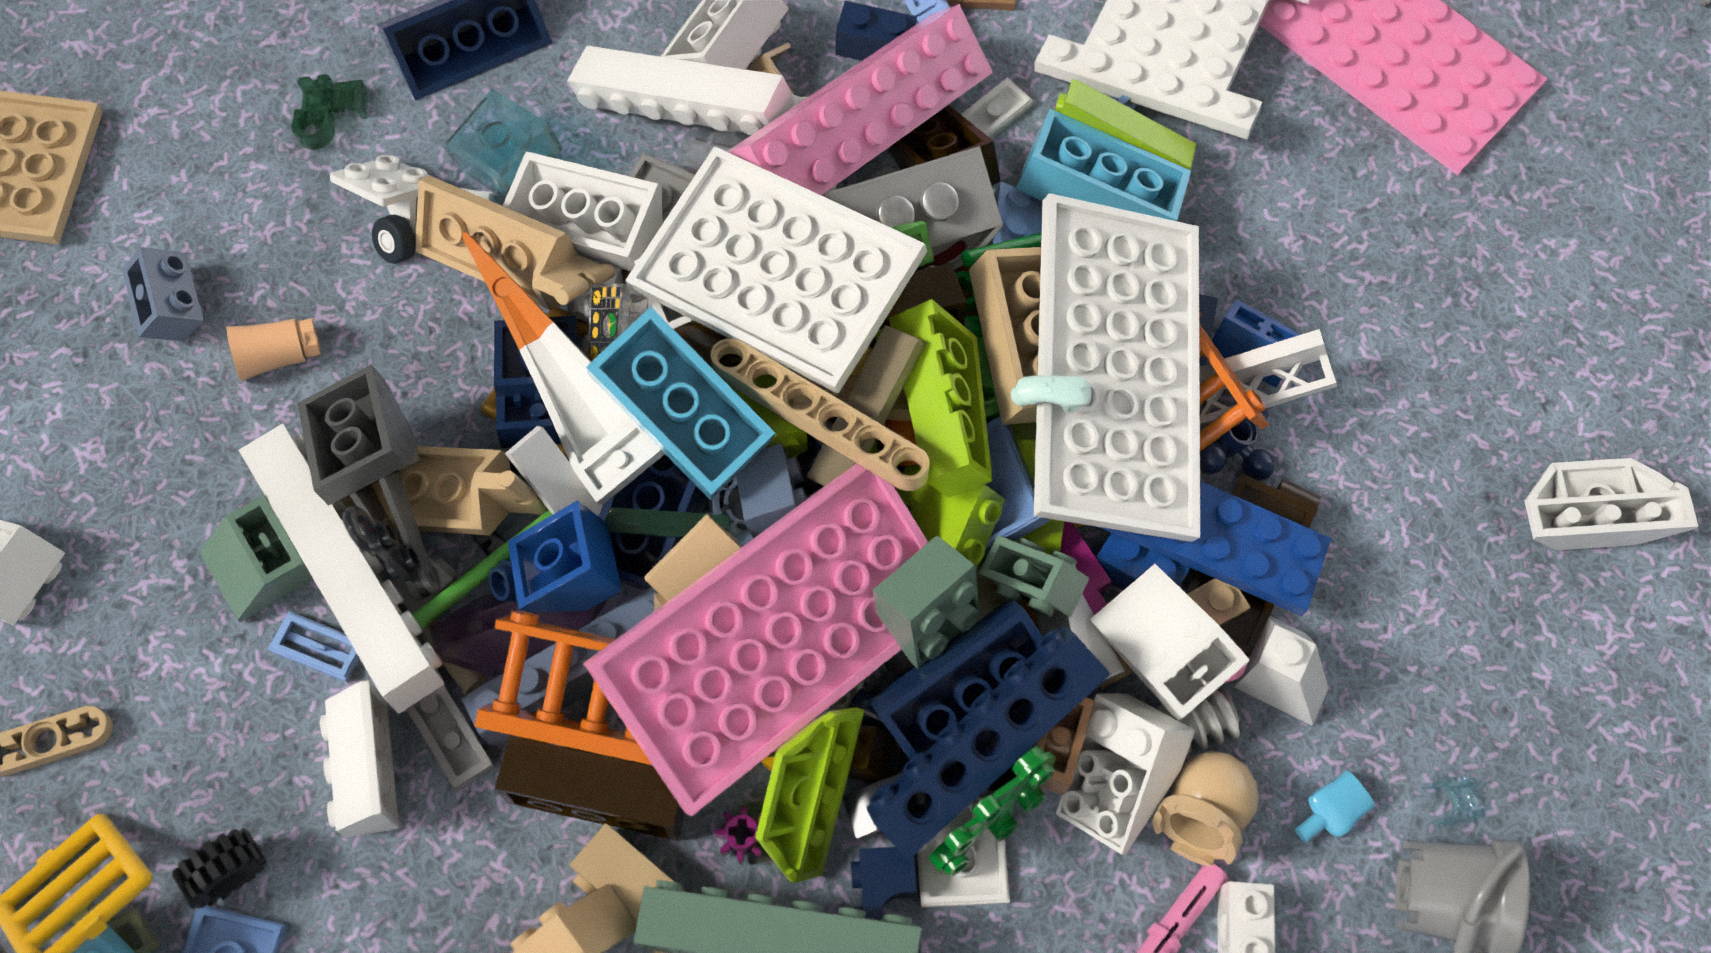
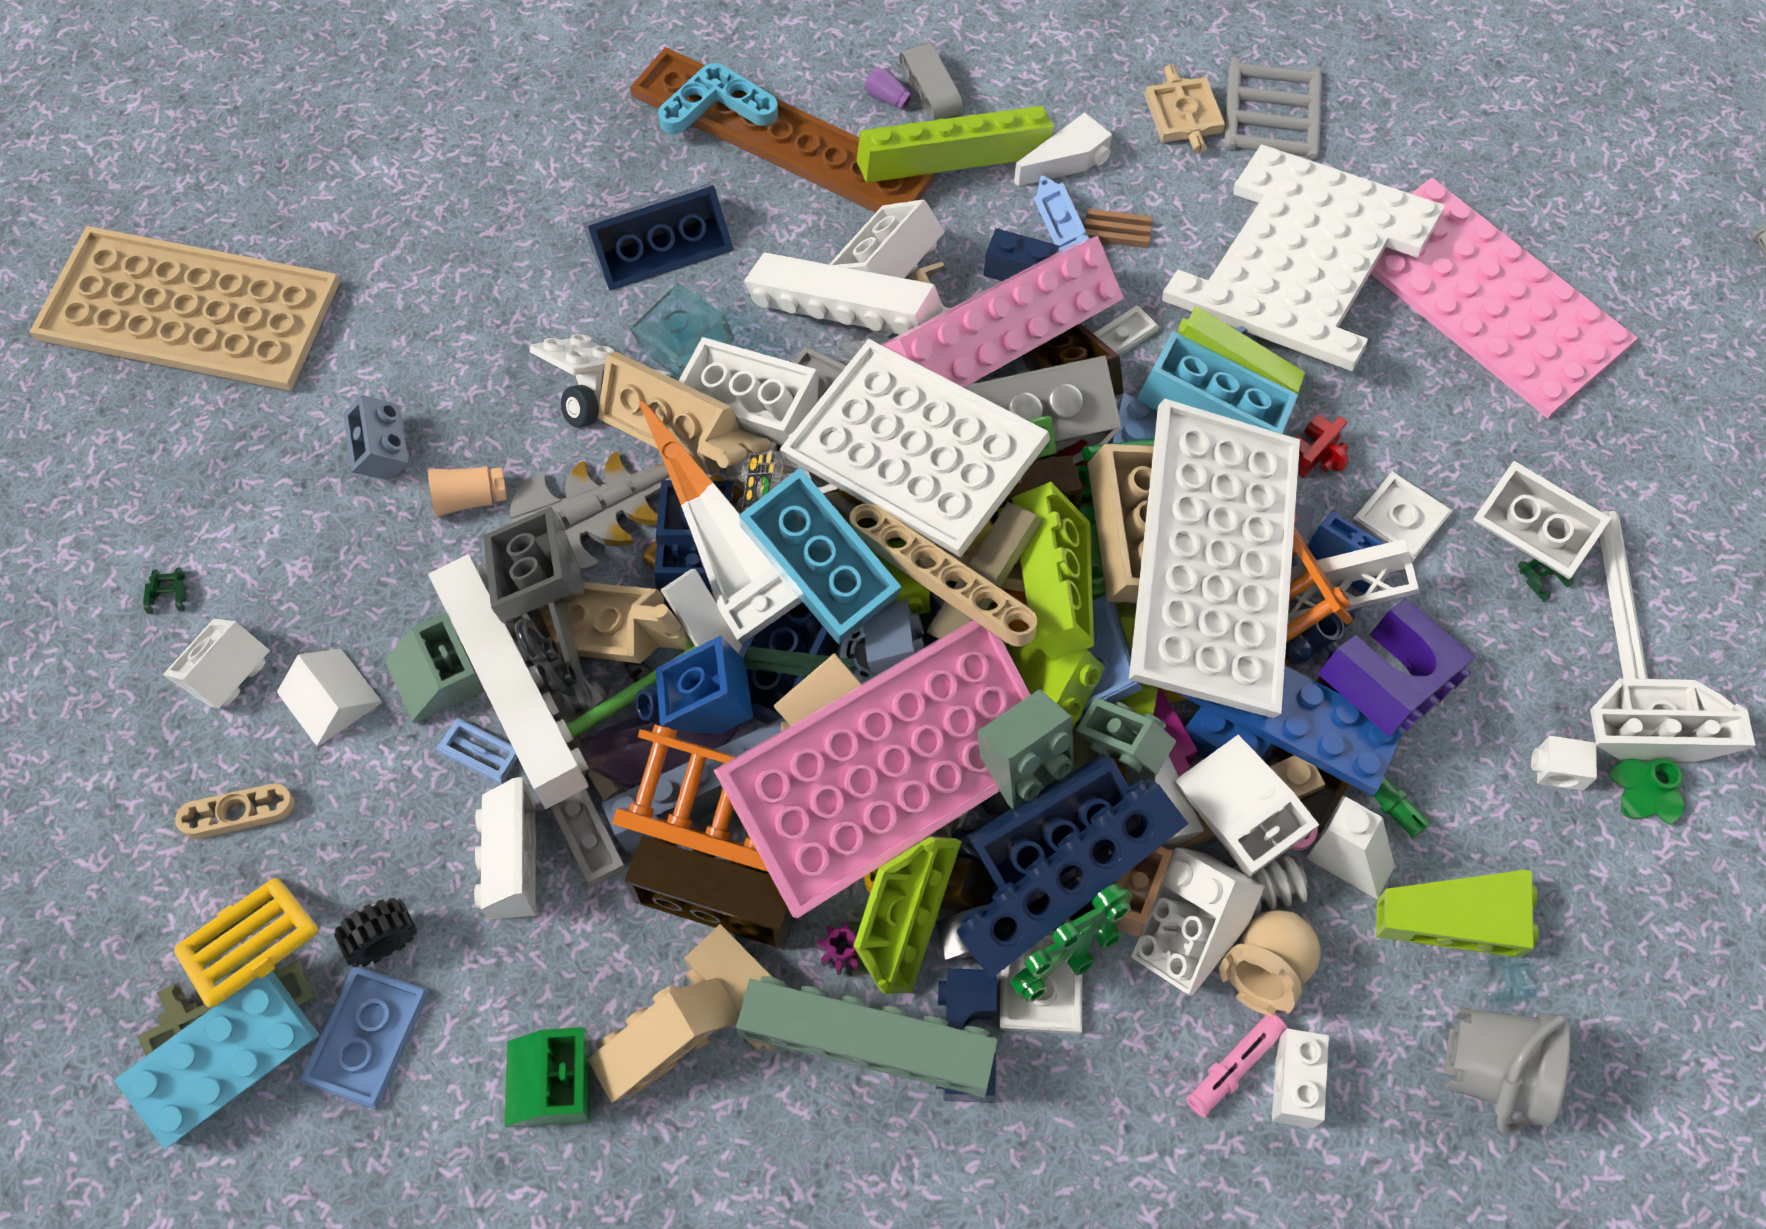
camera: 10 degrees right, 5 degrees down
(136, 596) = (326, 693): none -> white slope
(319, 100) = (525, 285): clear green piece -> none
(418, 355) = (593, 507): none -> light grey animal
(1064, 391) = (1165, 570): light aqua piece -> none
(1222, 212) = (1326, 436): none -> red hips
(1309, 503) = (1382, 691): none -> dark purple arch
(1310, 296) = (1402, 512): none -> white tile
(1331, 625) = (1400, 808): none -> green pin
(1336, 807) = (1394, 974): medium azure piece -> none
(1408, 735) = (1465, 914): none -> lime slope
(1460, 292) = (1541, 519): none -> white slope
(1472, 343) = (1534, 578): none -> dark green piece
(1500, 559) = (1565, 763): none -> white brick
(1547, 370) = (1622, 600): none -> white axle
(1585, 584) = (1645, 793): none -> green plate

